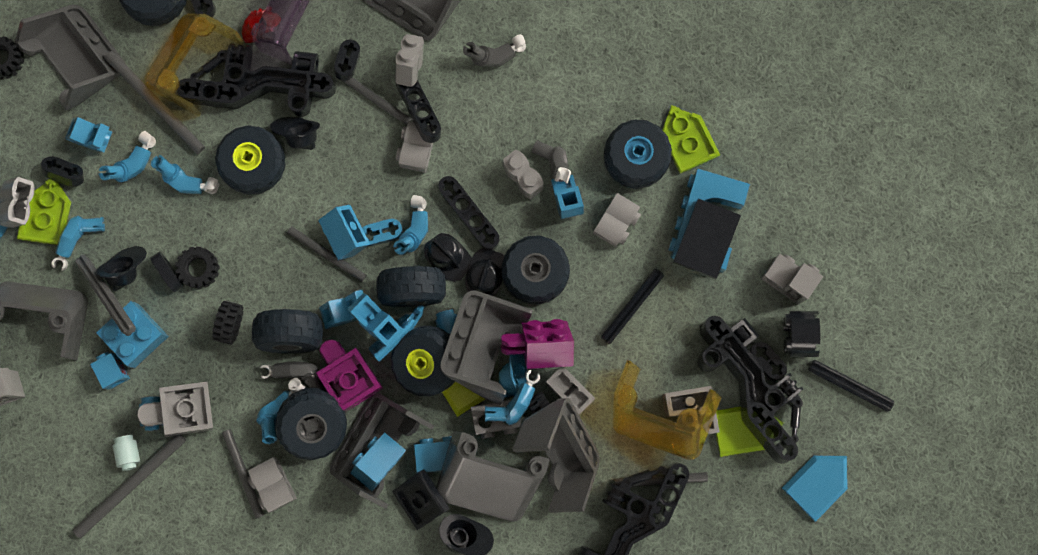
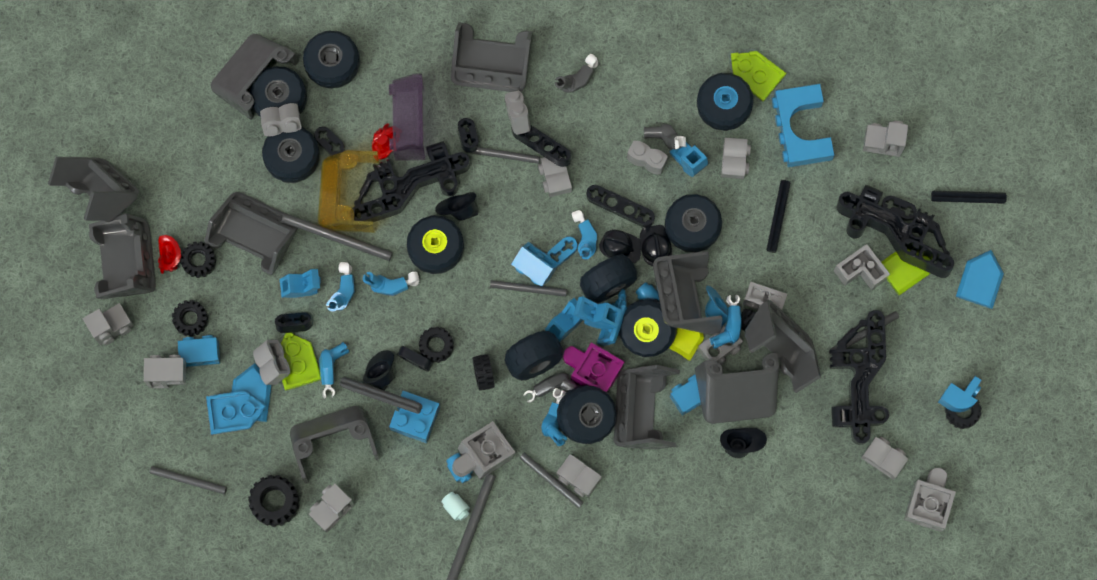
camera: 25 degrees left, 5 degrees down
(109, 370) = (411, 452): dark azure brick -> none
(378, 461) = (650, 417): dark azure brick -> none
(420, 499) = (695, 431): black tile -> none
(542, 344) = (728, 273): magenta brick -> none
(680, 438) = (843, 295): clear yellow windscreen -> none
(707, 239) = (809, 139): black tile -> none
(802, 333) = (914, 175): black brick -> none

